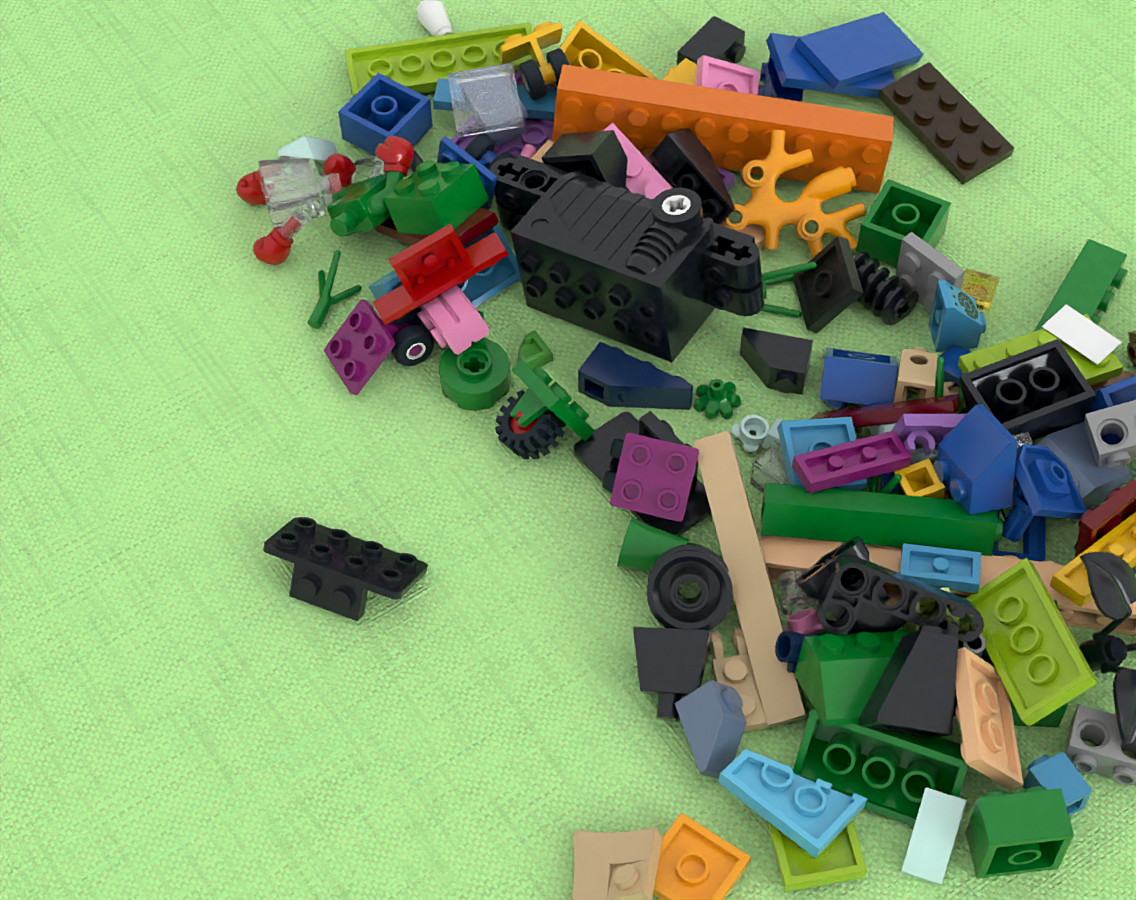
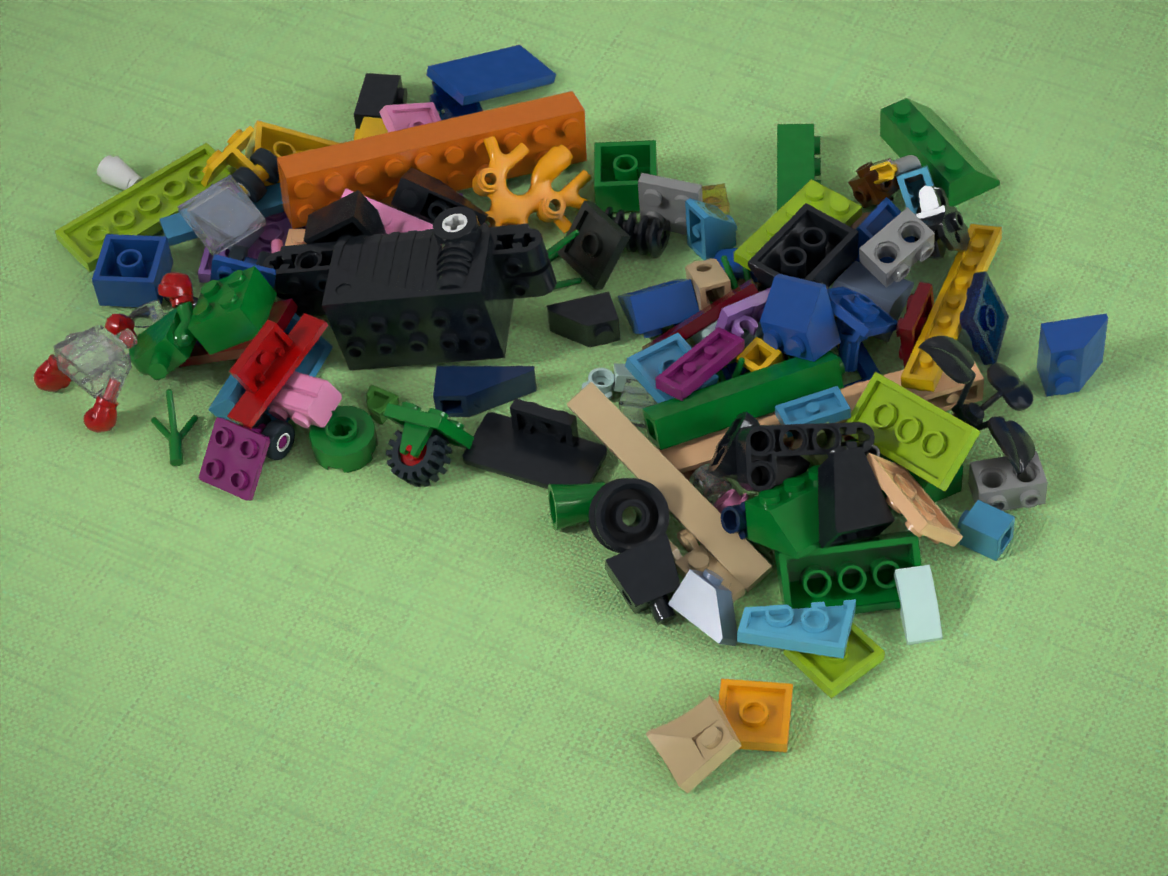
camera: 25 degrees left, 5 degrees down
(309, 147) = (84, 320): light aqua slope -> none
(339, 569) = (331, 636): black bracket -> none
(651, 476) = (544, 446): magenta plate -> none
(717, 398) = (553, 371): green plant -> none
(858, 50) = (505, 52): blue tile -> none
(946, 123) = (608, 82): dark brown plate -> none
(1019, 832) = (979, 570): green brick -> none
(1081, 334) = (818, 195): white sticker -> none

